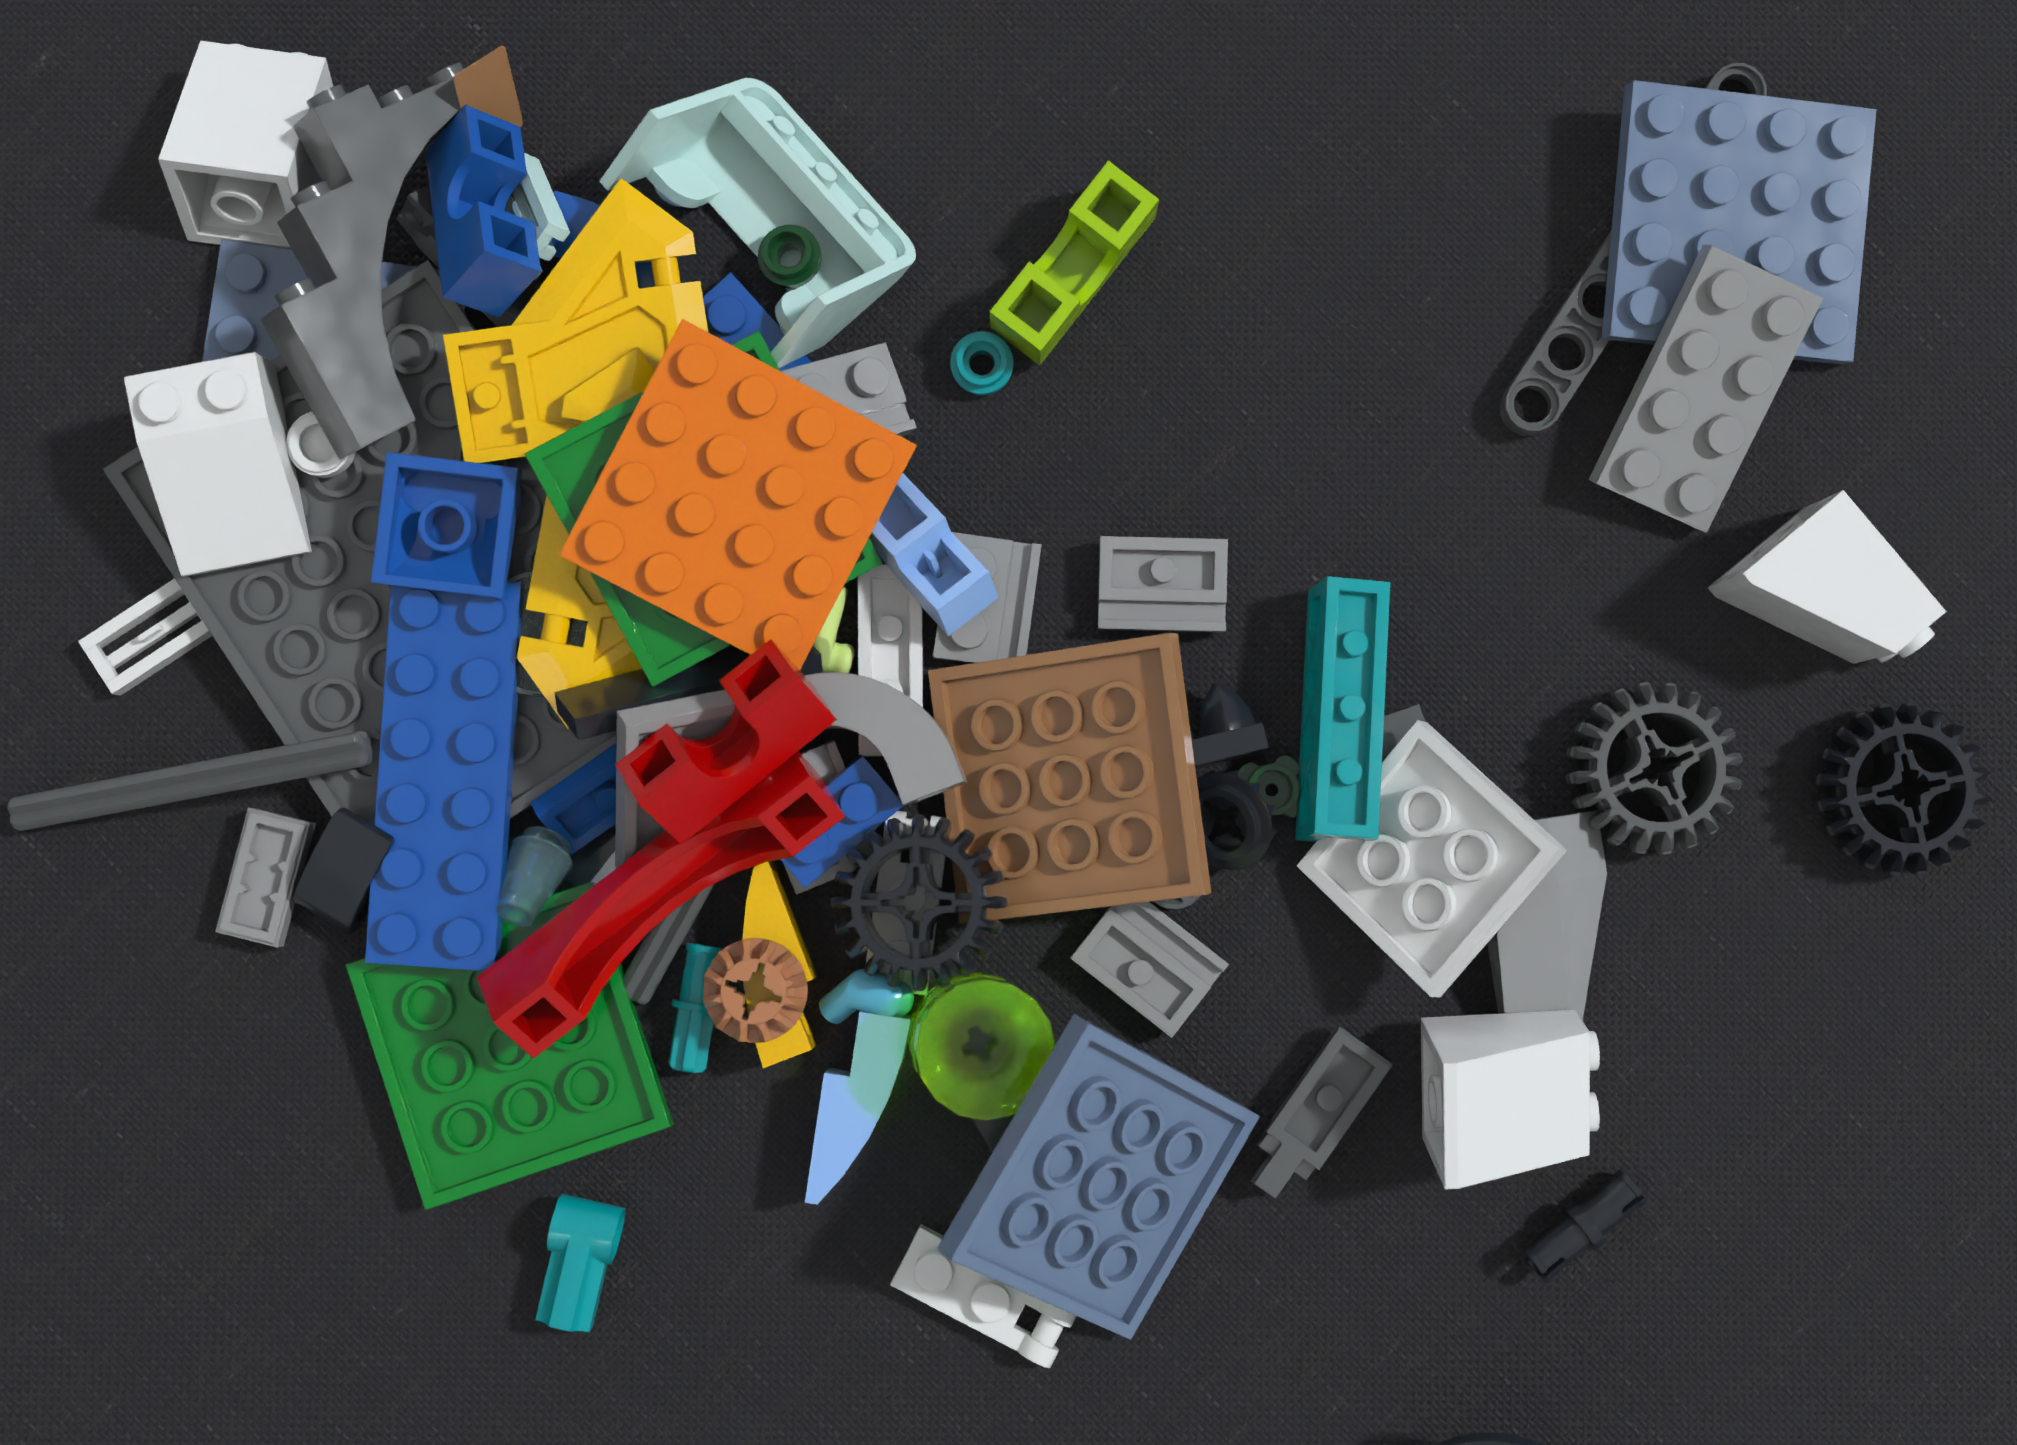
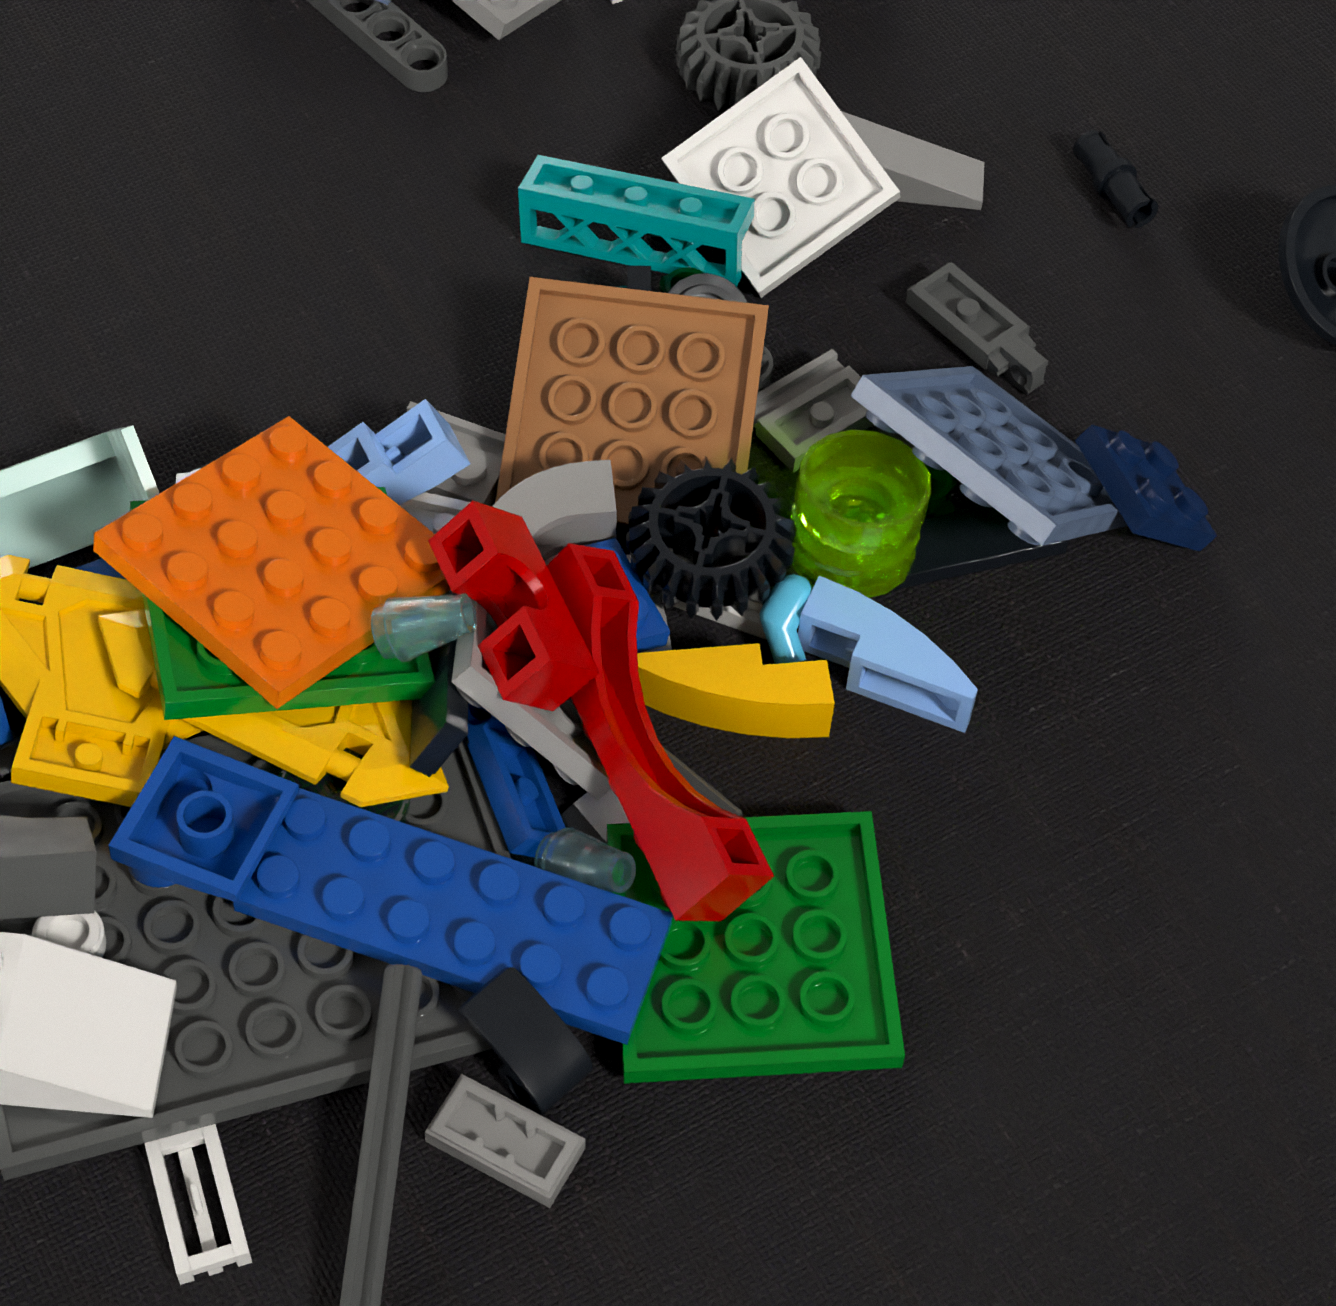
camera: 80 degrees left, 30 degrees down
(582, 1244) = (971, 922): teal piece -> none
(681, 659) = (420, 624): none -> clear light blue cone
(692, 1023) = (756, 771): teal axle -> none
(782, 975) = (766, 705): nougat gear -> none
(785, 239) = (59, 508): dark green plate -> none
(977, 344) = (231, 398): teal plate -> none
(978, 1299) = (1090, 609): white plate -> none
(1076, 265) = (187, 331): lime arch -> none
(1124, 1331) = (1147, 488): none -> dark blue plate
(1162, 584) = (476, 327): light grey plate -> none
(1506, 1093) = (990, 189): white slope -> none

